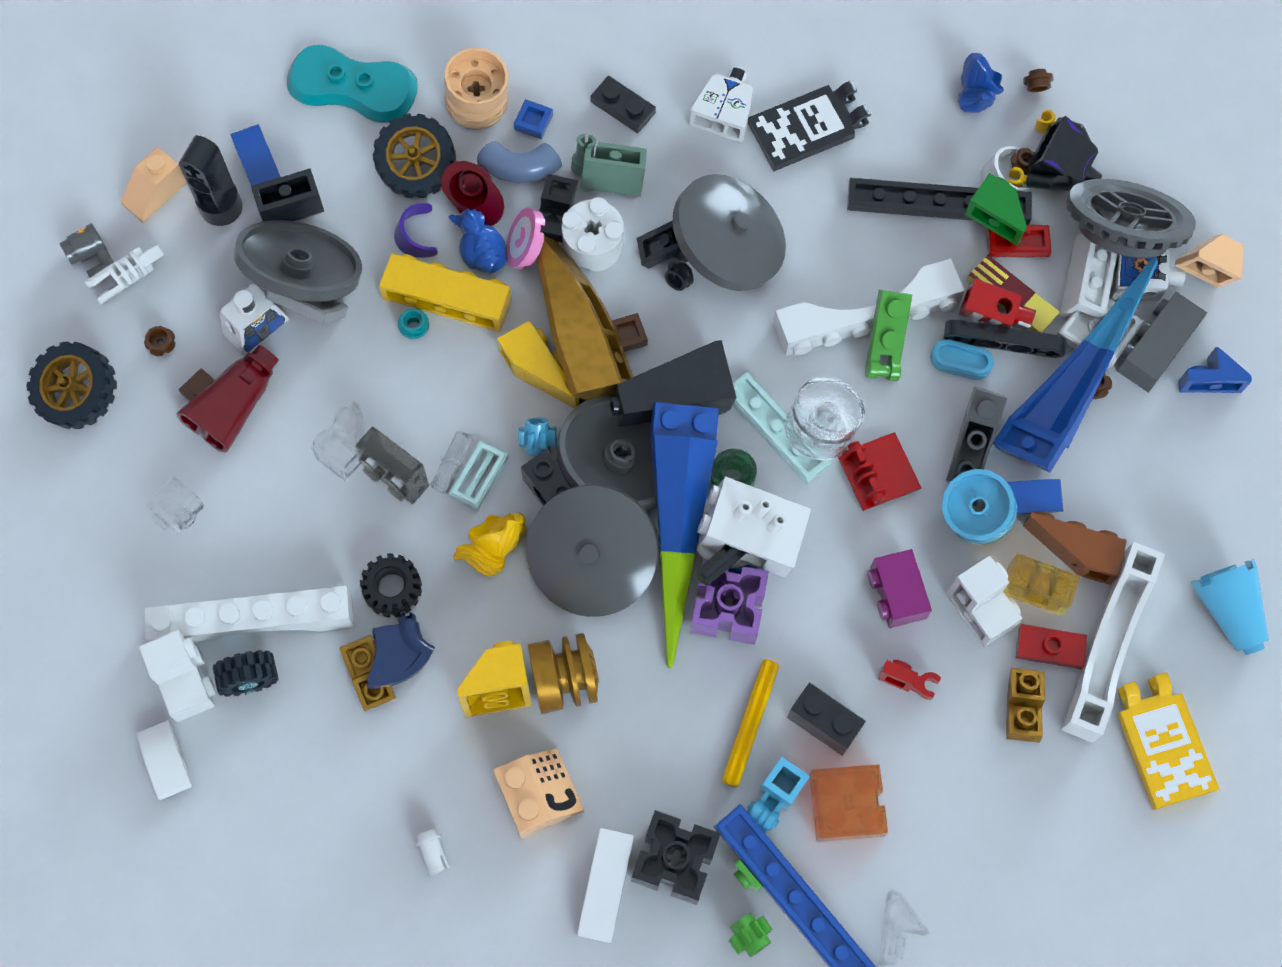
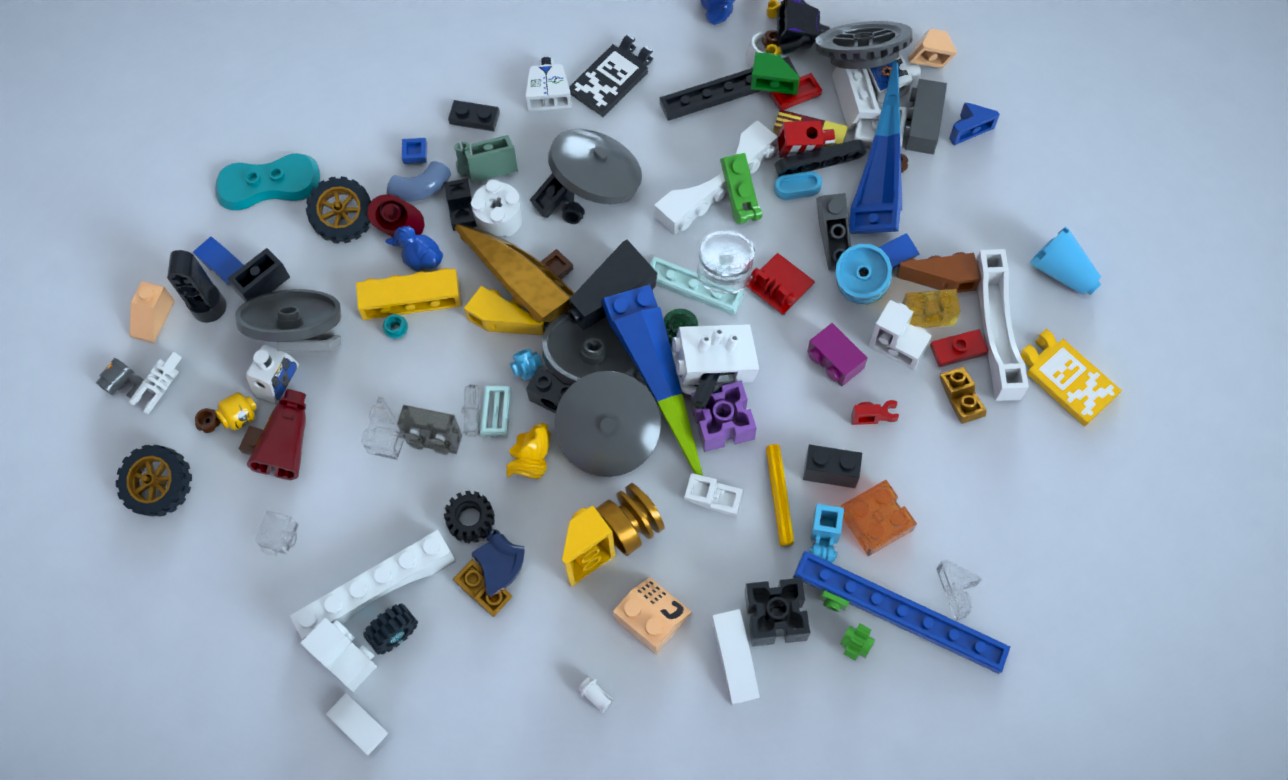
camera: 20 degrees left, 5 degrees down
(194, 345) = (236, 411): none -> yellow head
(404, 242) = (359, 272): dark purple helmet -> none
(480, 74) = (363, 144): light nougat wheel -> none
(525, 239) = (450, 231): bright pink tile -> none
(674, 688) = (713, 495): none -> white slope

